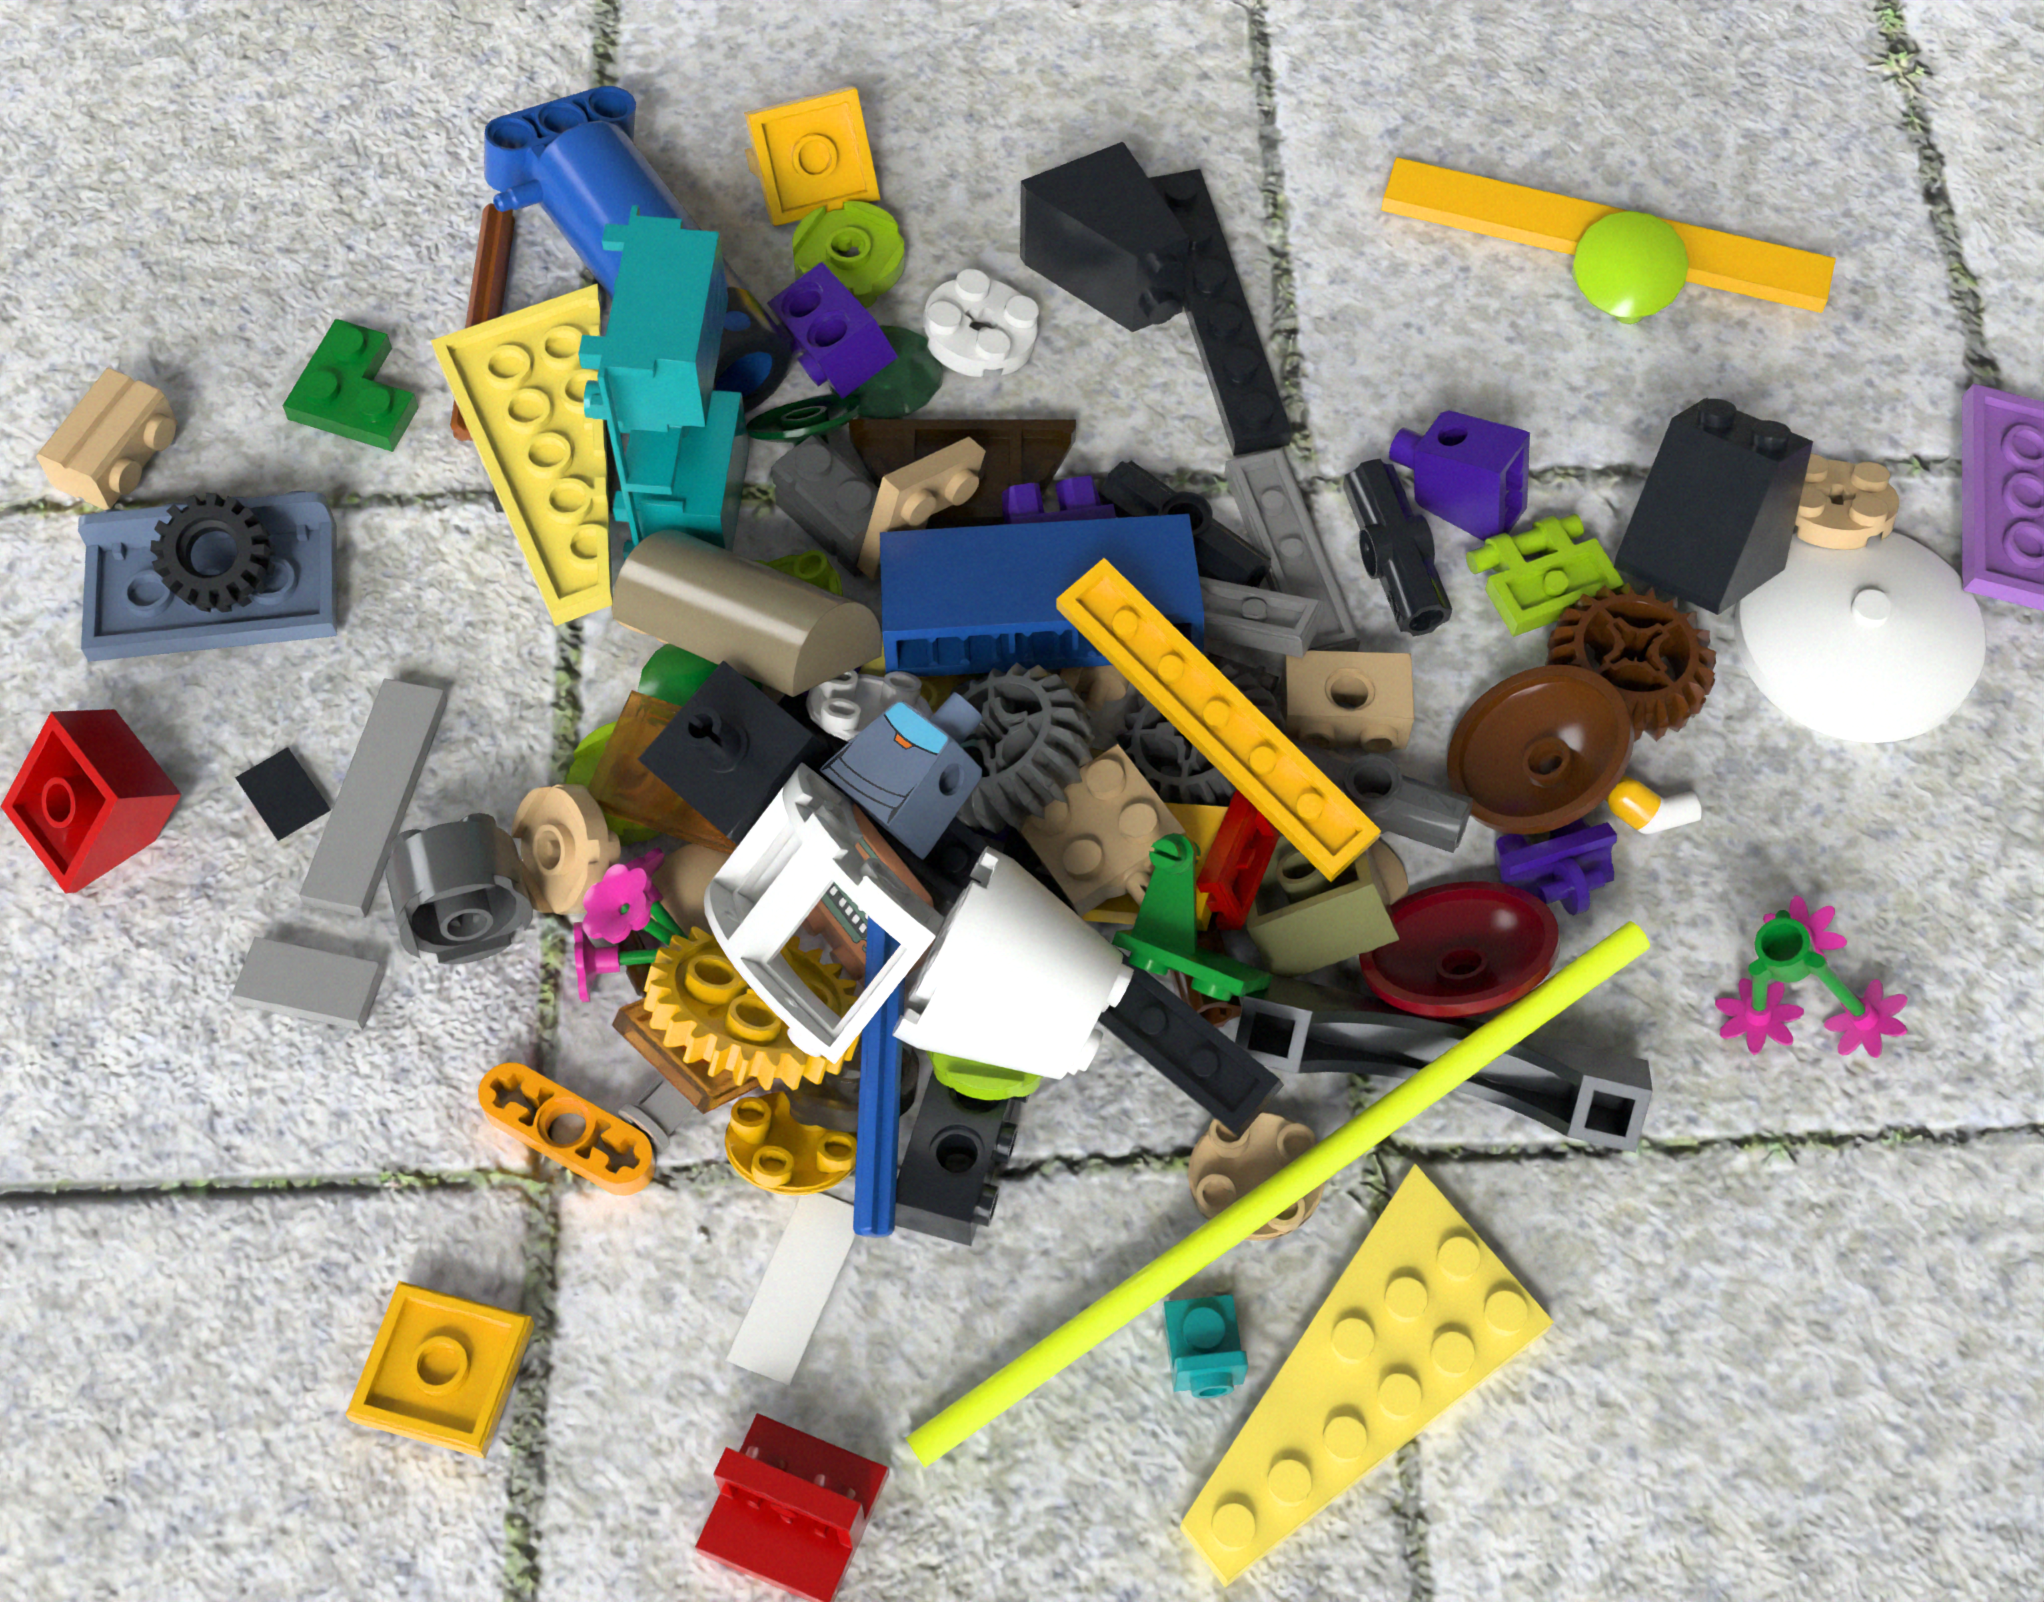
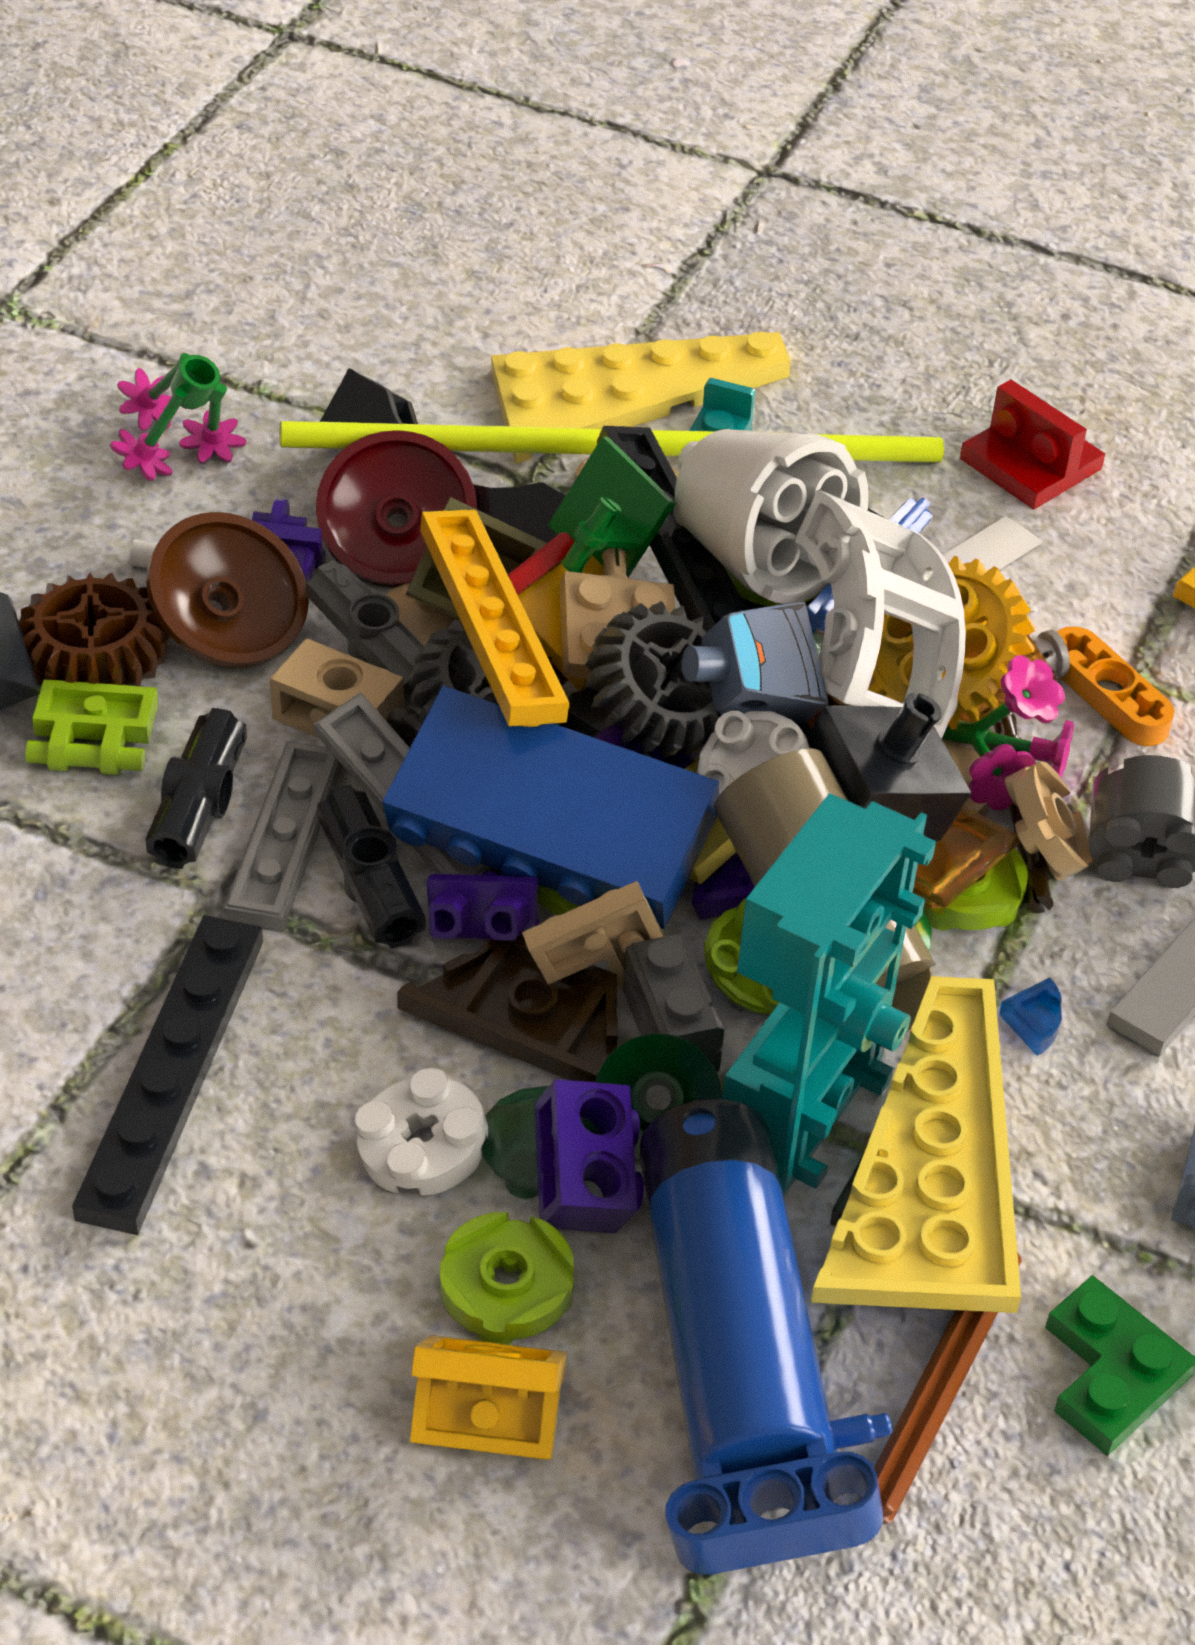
camera: 155 degrees left, 15 degrees down
(515, 674) = (1035, 1014): none -> clear blue tile
(1106, 237) = (245, 1127): black slope -> none
(1468, 471) = (98, 810): dark purple torso -> none

